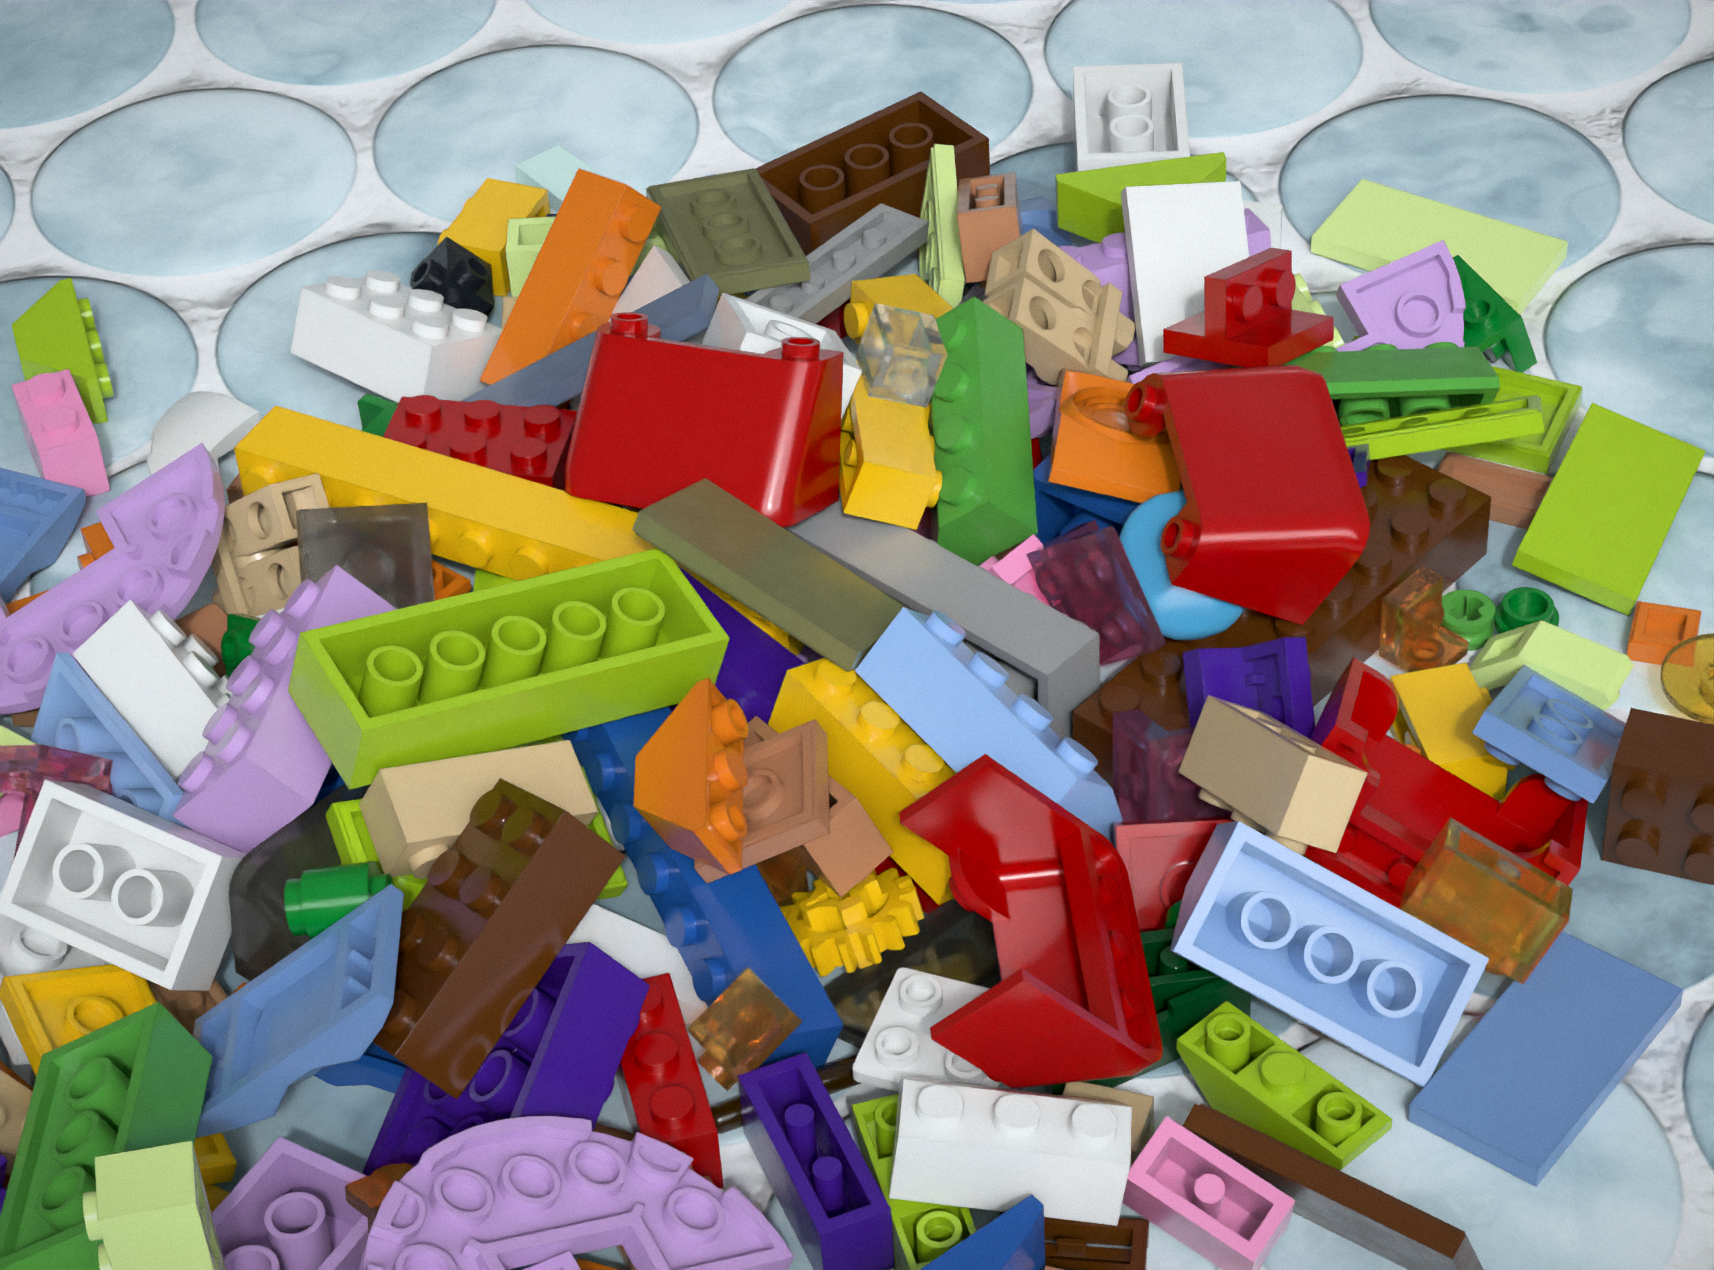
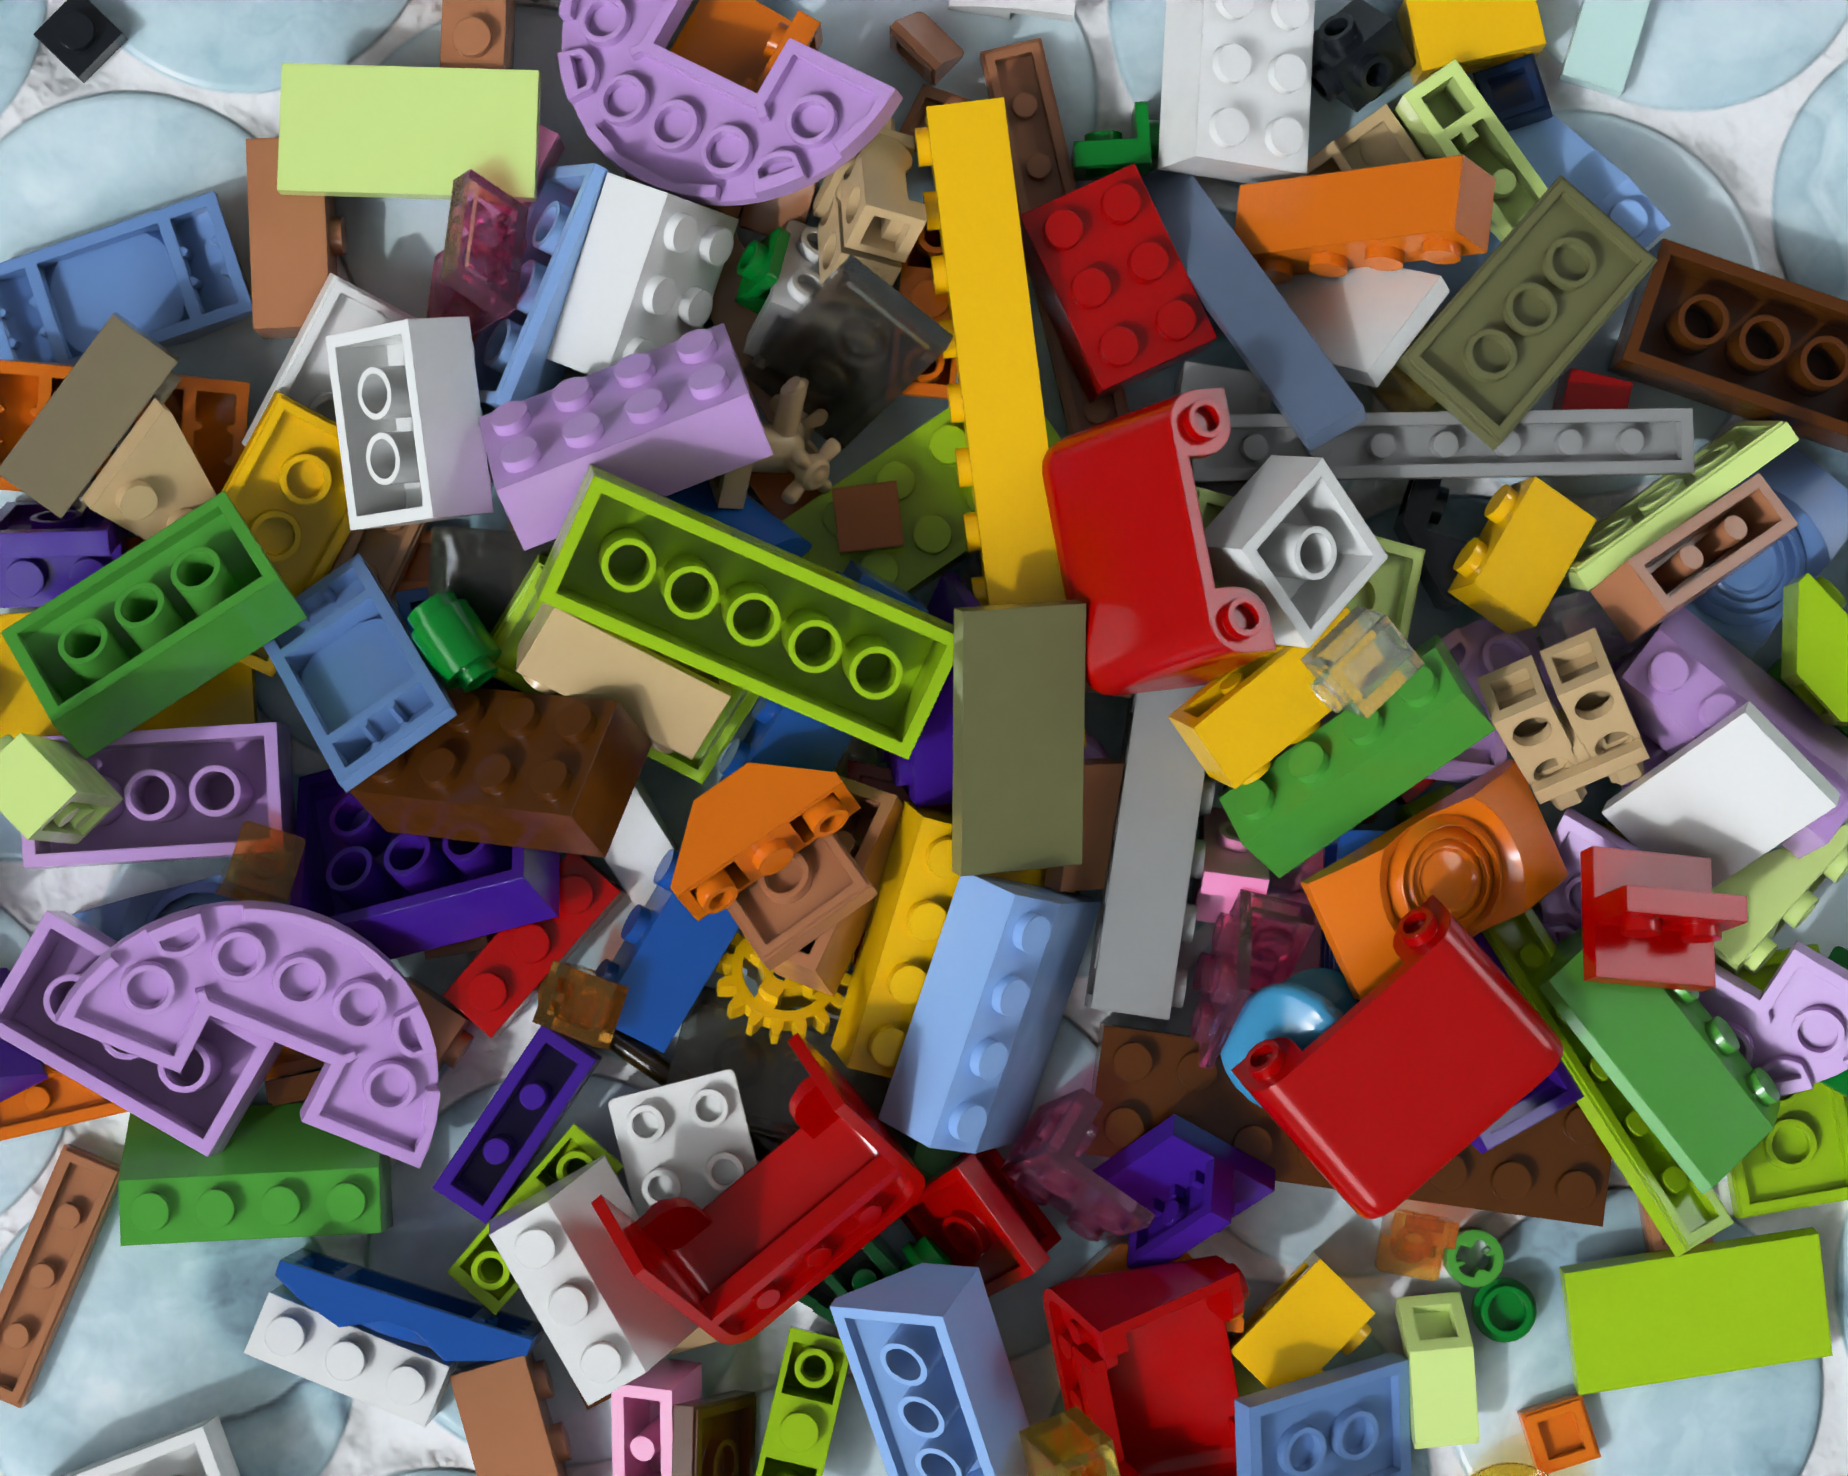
camera: 50 degrees right, 45 degrees up
(1271, 776) = (1046, 1289): tan brick -> none

